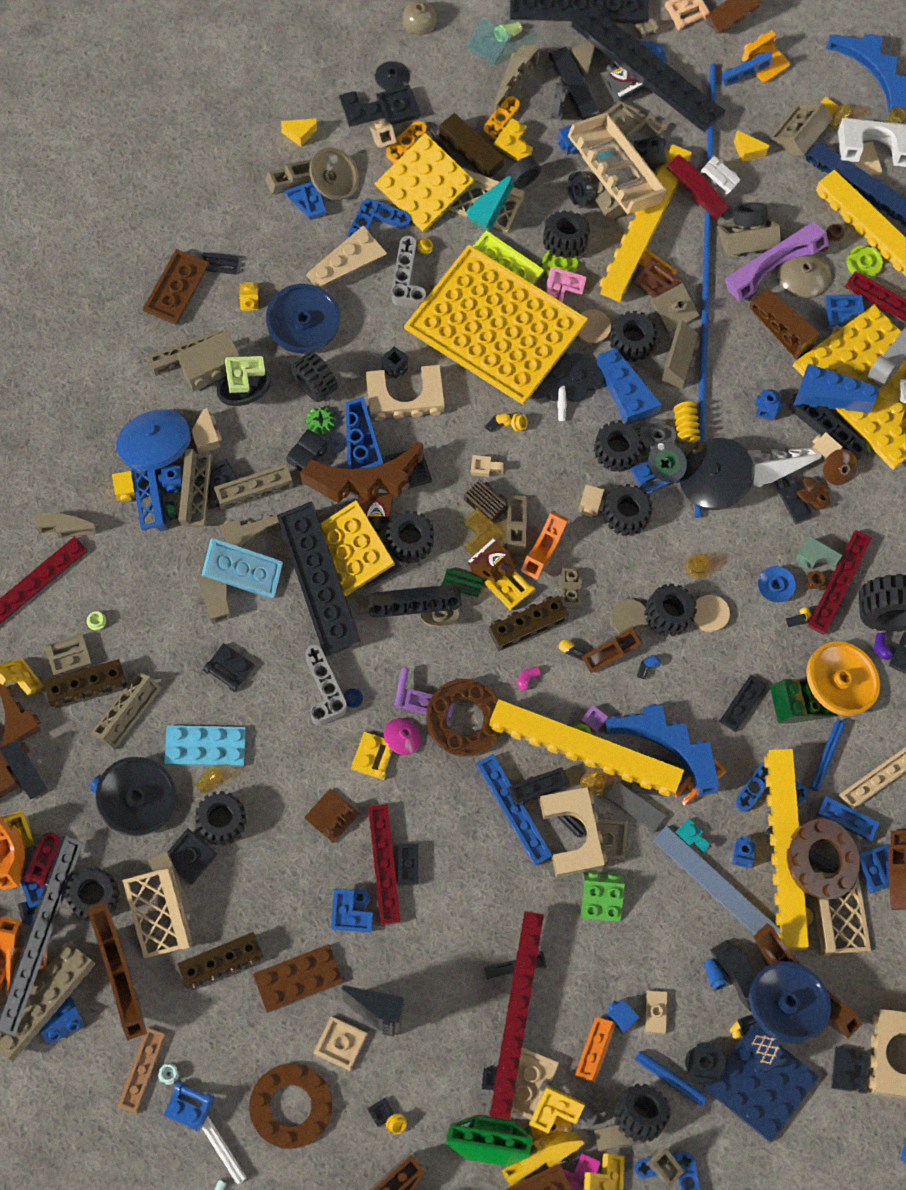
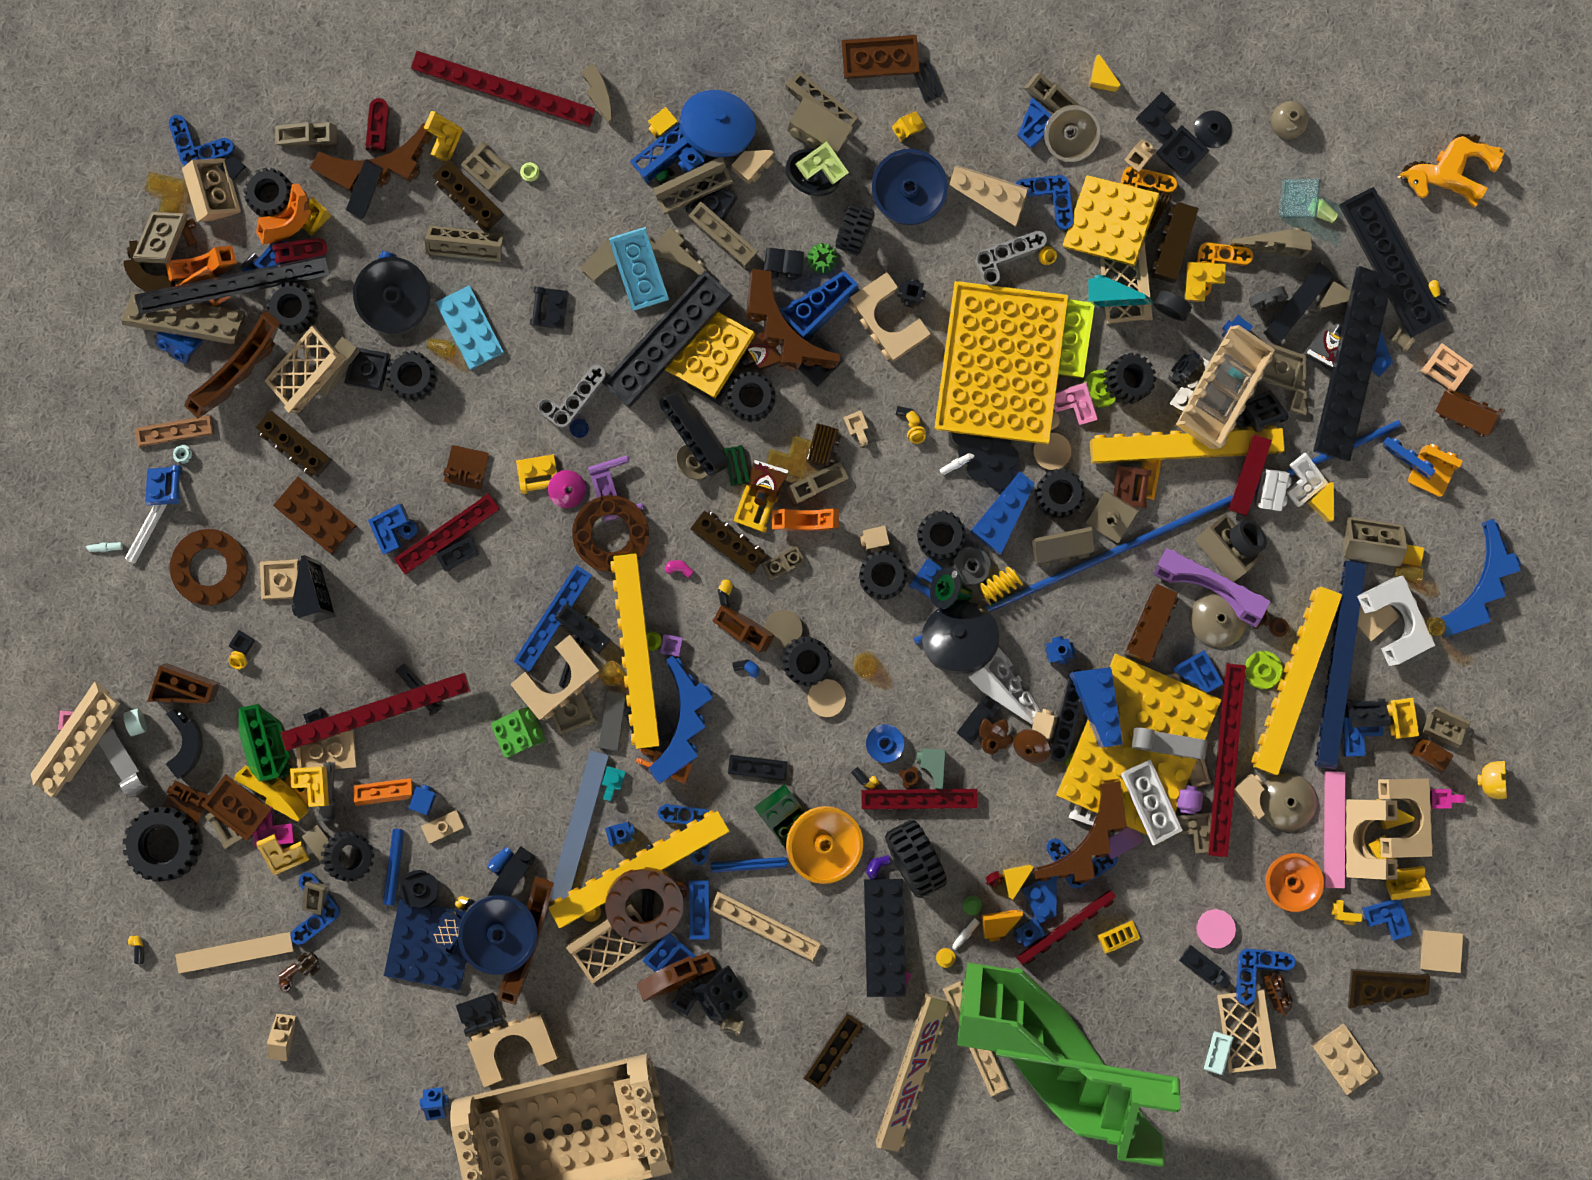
camera: 65 degrees right, 15 degrees up
(726, 148) = (1310, 480): none -> white plate

